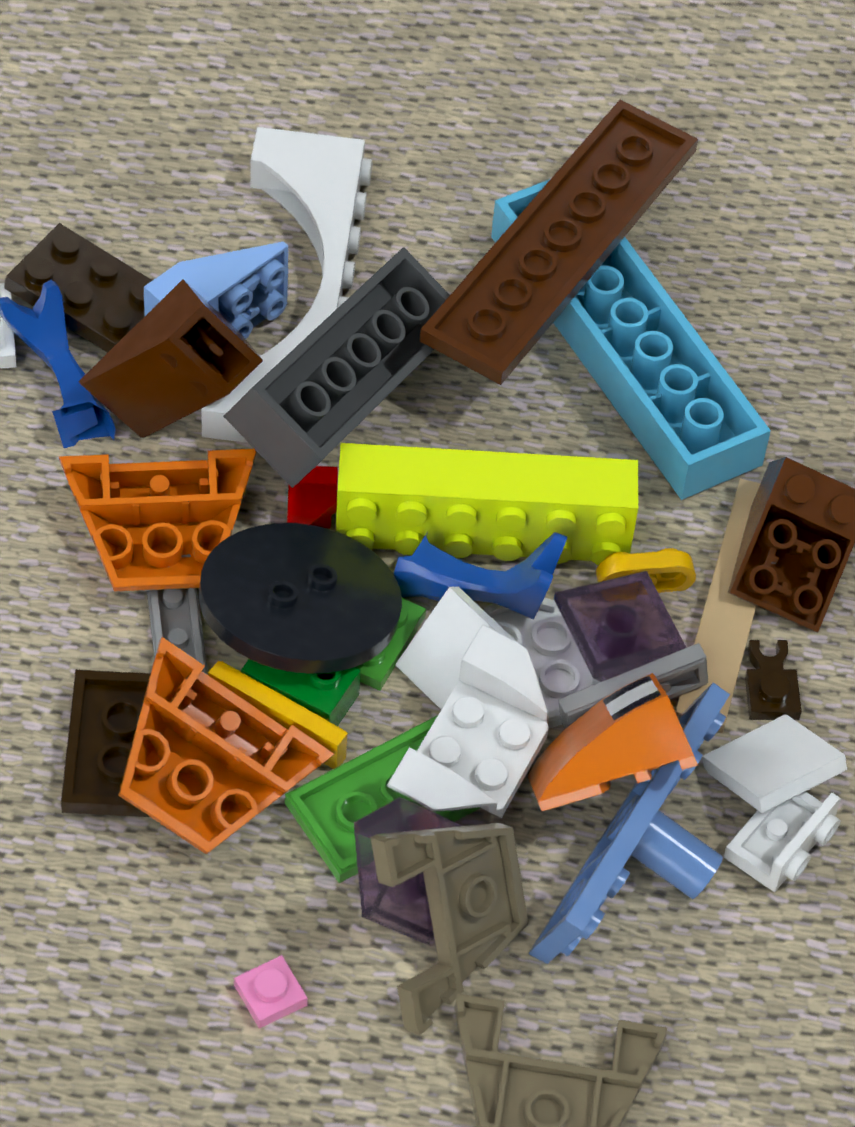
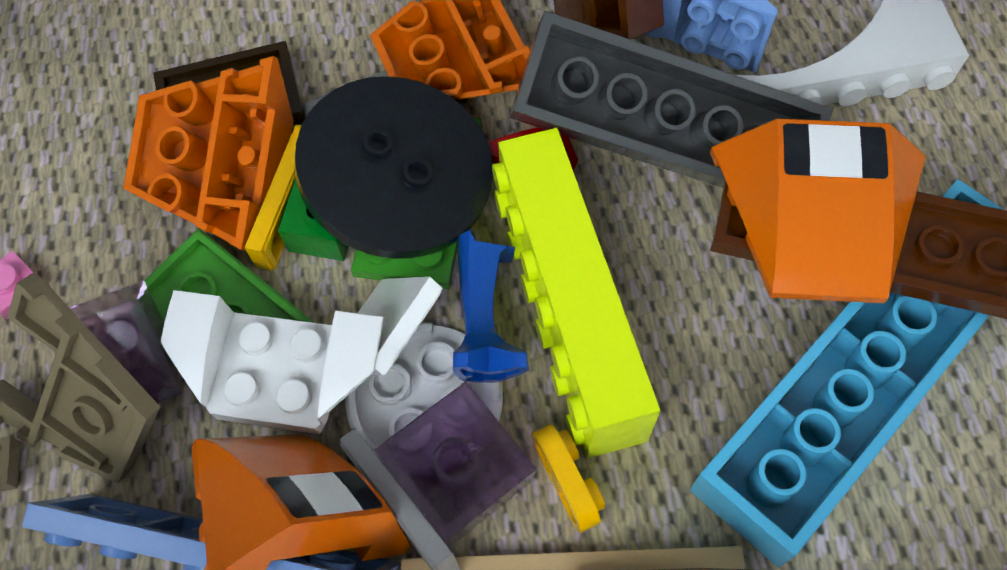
camera: 80 degrees right, 10 degrees up
(507, 290) = (823, 204): none -> orange wedge

